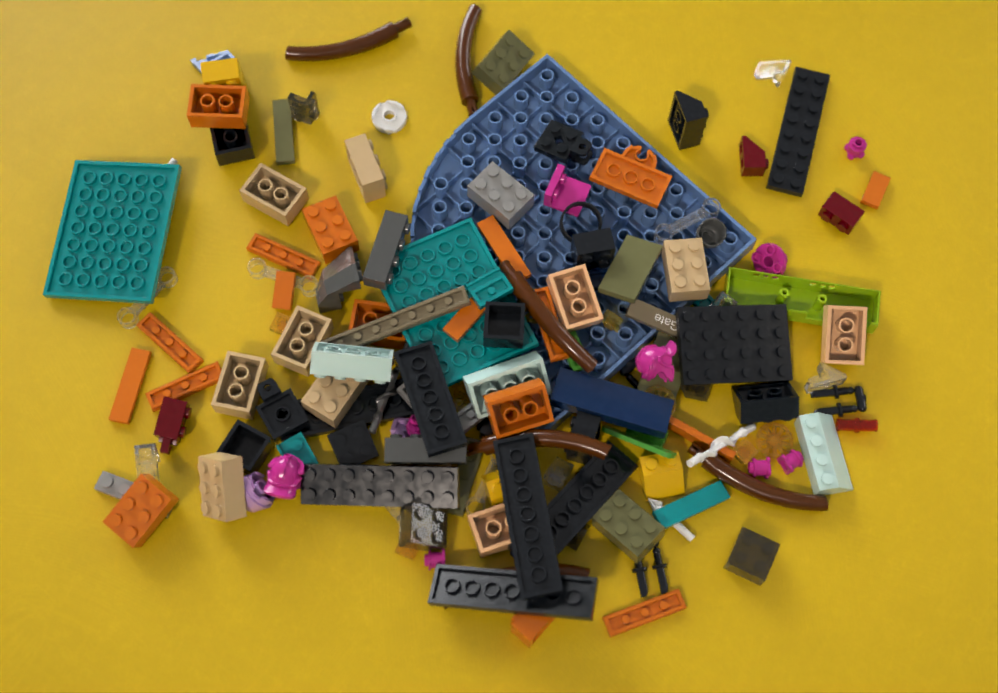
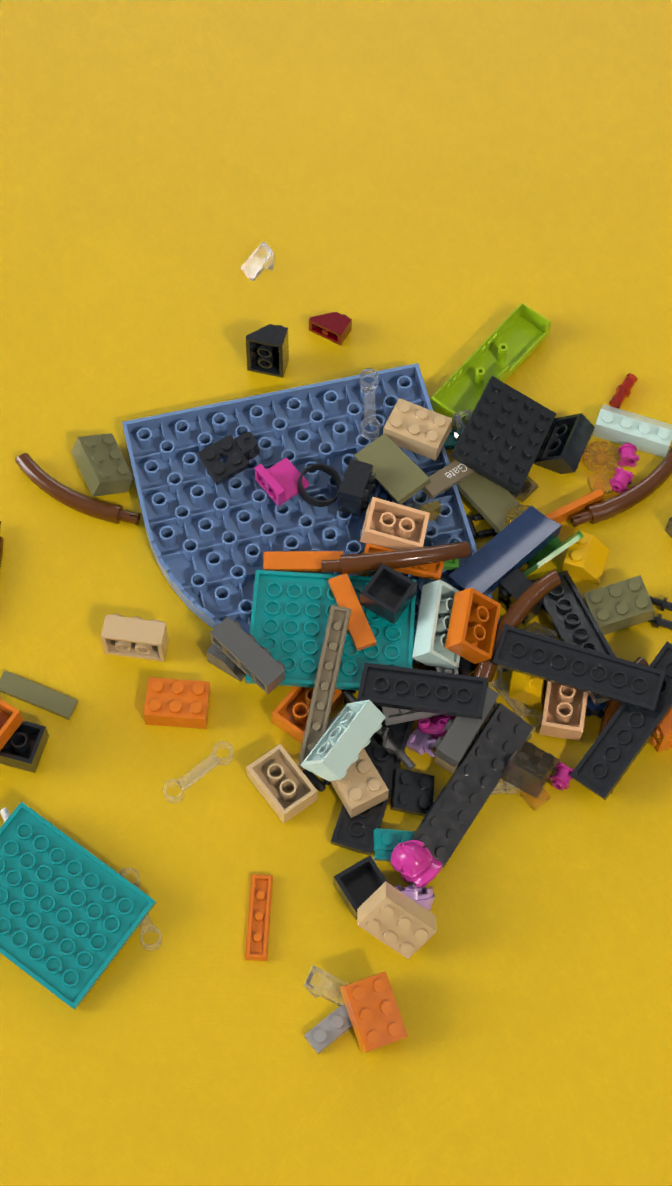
camera: 60 degrees left, 5 degrees down
(130, 386) = (227, 969): orange tile -> none
(170, 343) = (202, 911): orange tile -> none
(171, 423) = (294, 944): dark red hinge -> none
(237, 385) = (293, 861): tan brick -> none
(274, 194) = (107, 733): tan brick -> none
(278, 401) = (332, 834): black plate -> none
(279, 323) = (250, 795): clear yellow plate -> none
(283, 255) = (174, 761): orange tile -> none
(284, 290) = (215, 776): orange tile -> none
(304, 109) = (30, 661): clear smoke bracket -> none
(338, 277) = (240, 717): dark grey brick -> none
(392, 125) = (89, 603): white tile -> none
(489, 287) = (344, 587): teal plate -> none
(500, 195) = (249, 533): light grey brick -> none
(632, 175) = (297, 420): orange plate -> none
(655, 504) = (610, 576): white piece -> none
(656, 360) = (490, 495): dark pink helmet -> none
(691, 505) = (624, 548): teal tile -> none
(712, 232) = (395, 388): dark grey hair -> none
(719, 443) = (586, 495): white piece -> none
(770, 259) = (440, 366): dark pink plate -> none
(798, 132) = (328, 279): black plate -> none
(827, 377) = (569, 387): clear slope -> none
(840, 410) = (601, 395): black piece -> none
(841, 213) = (427, 292): dark red brick -> none
(843, 334) = (544, 351): light nougat brick -> none
(855, 148) = (373, 246): dark pink brick -> none
(875, 190) = (420, 256): orange tile -> none

